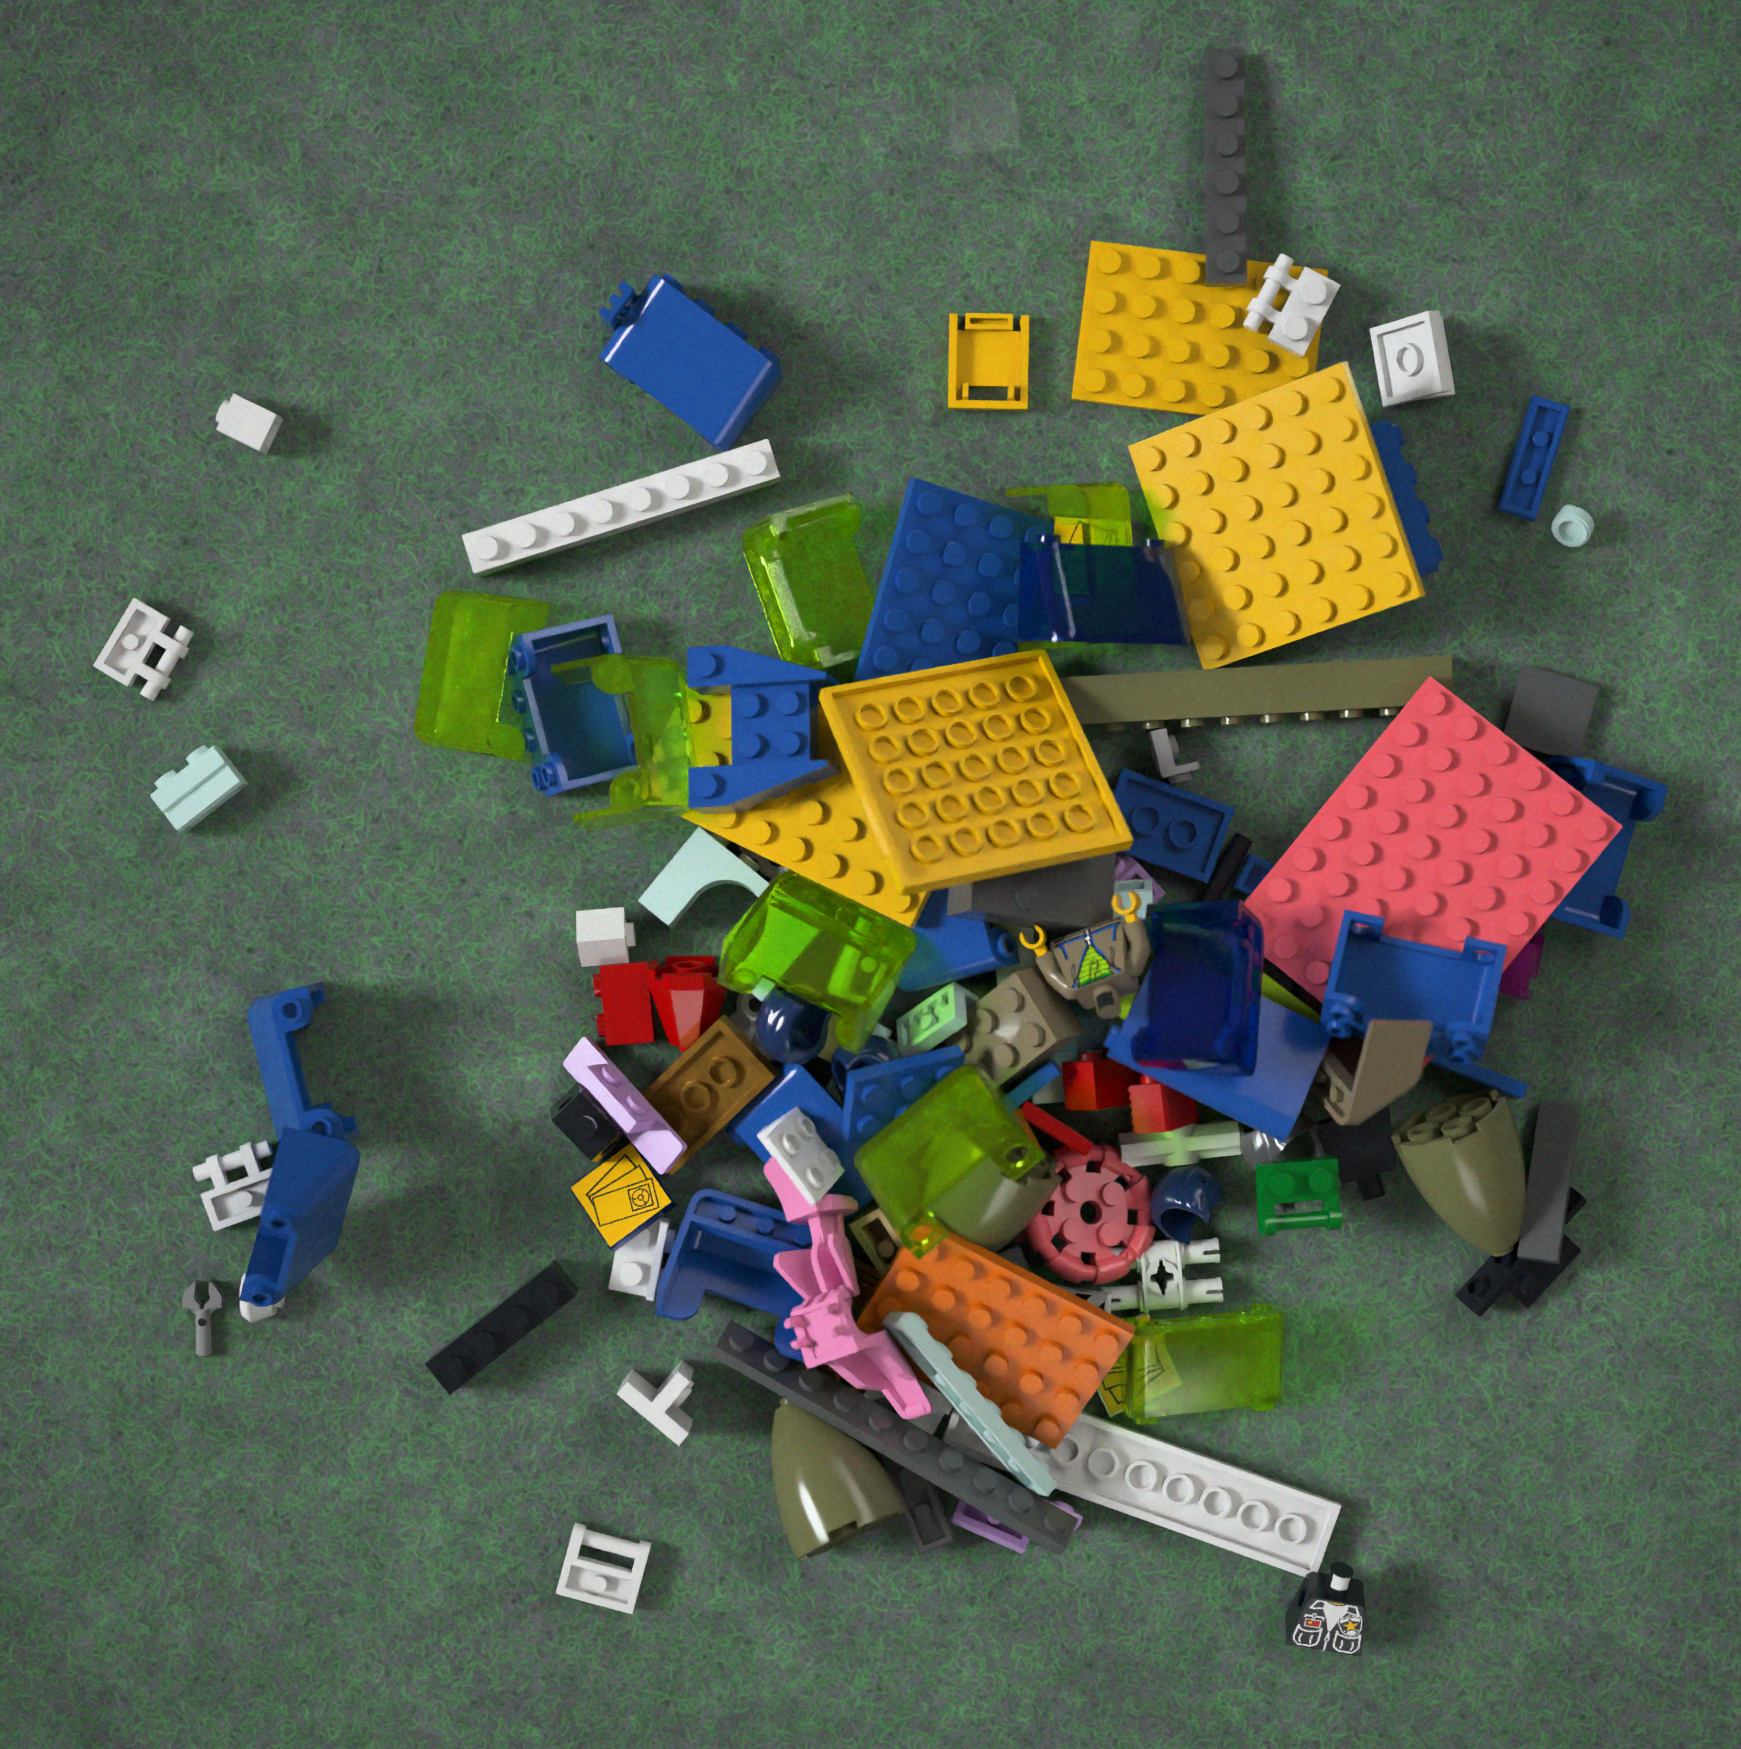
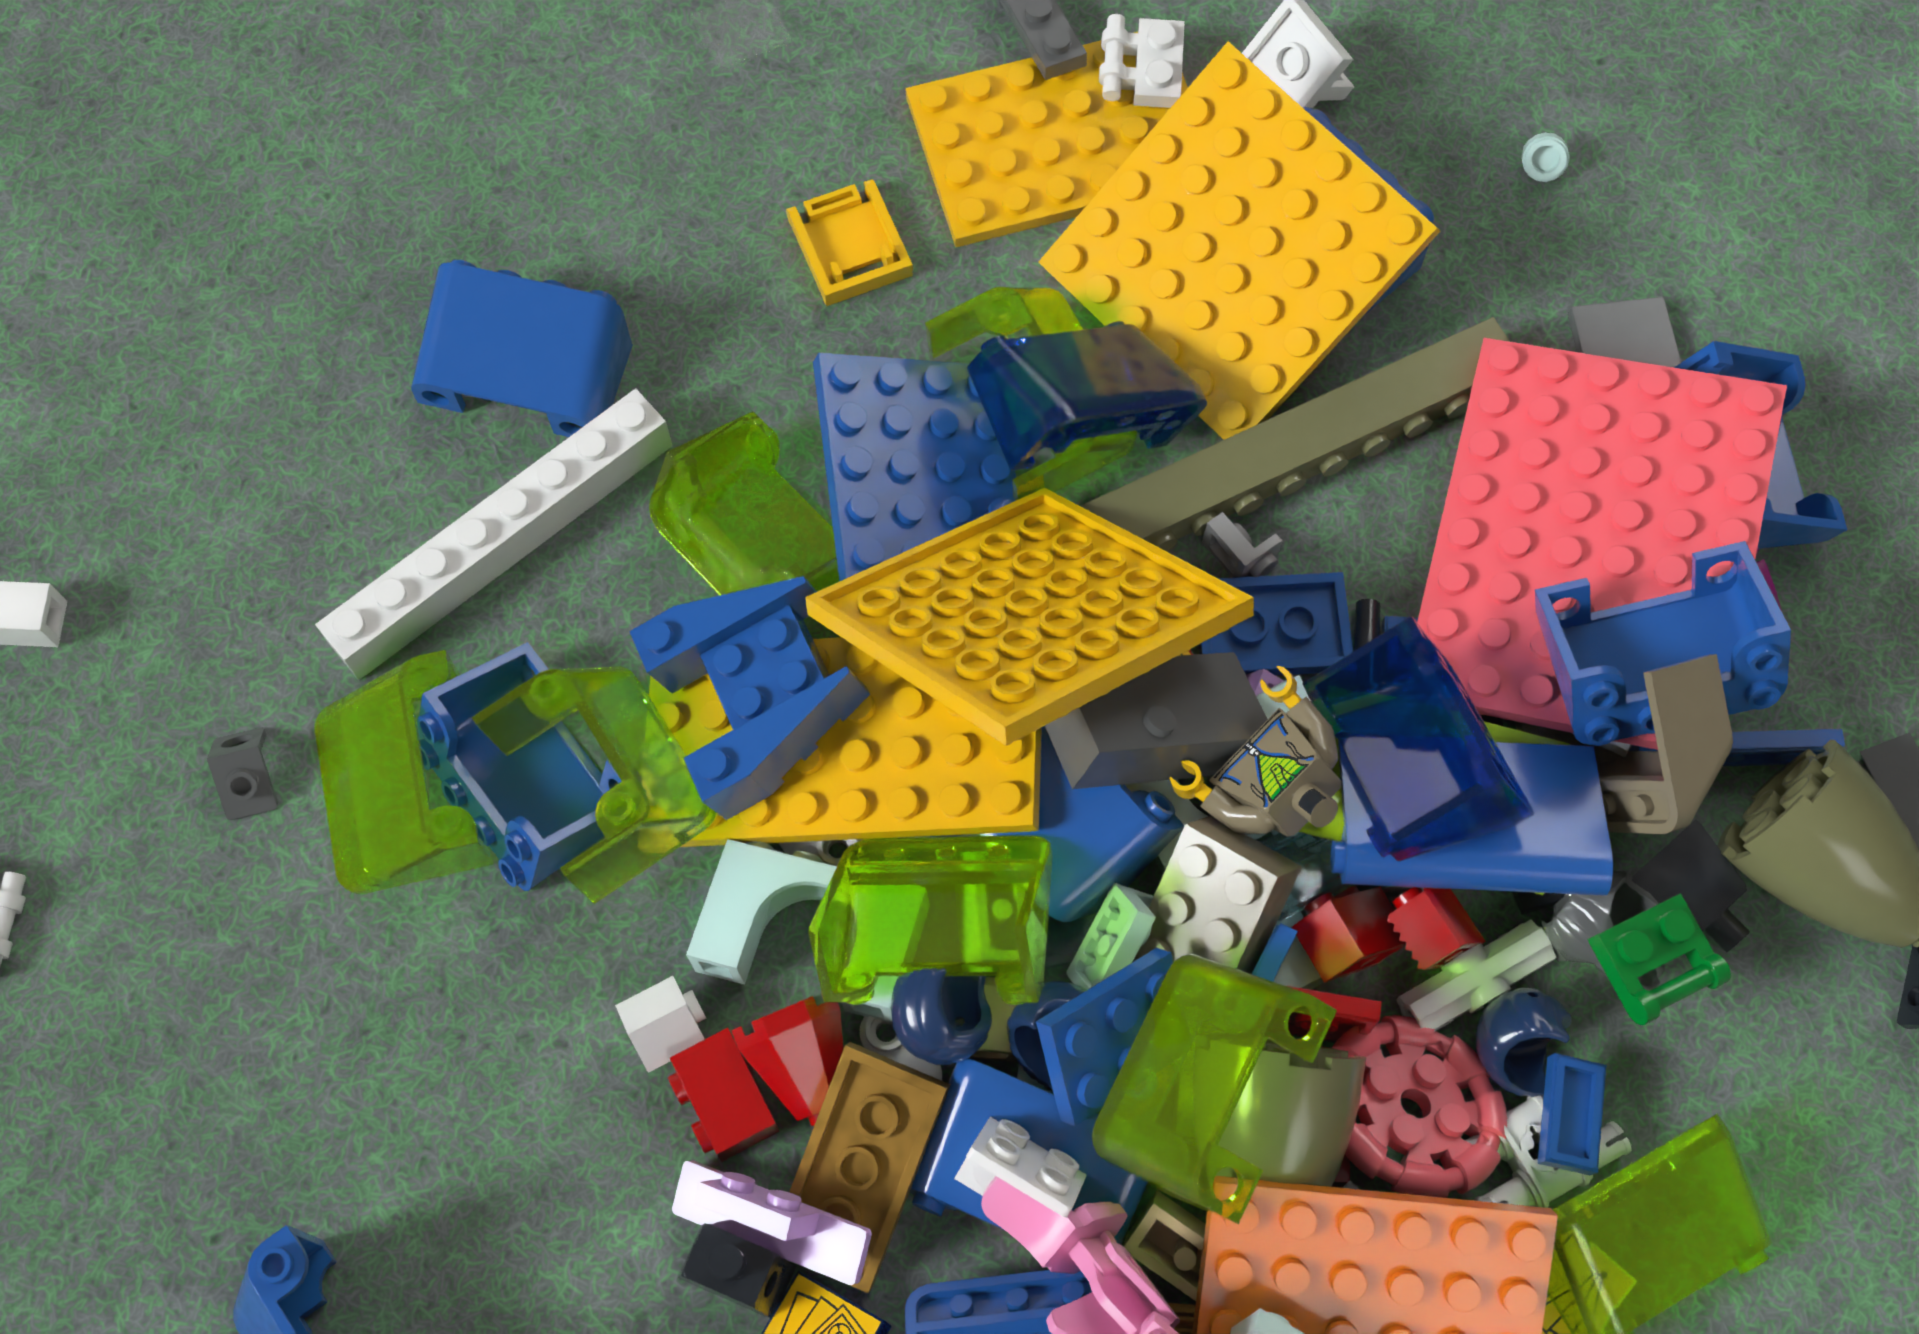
camera: 20 degrees left, 20 degrees down
(198, 788) = (81, 1057): light aqua brick -> none
(371, 619) = (242, 774): none -> dark grey bracket
(618, 306) = (411, 320): blue tile -> none
(1191, 1265) = (1572, 1114): none -> blue tile
(1533, 458) = (1466, 117): blue tile -> none

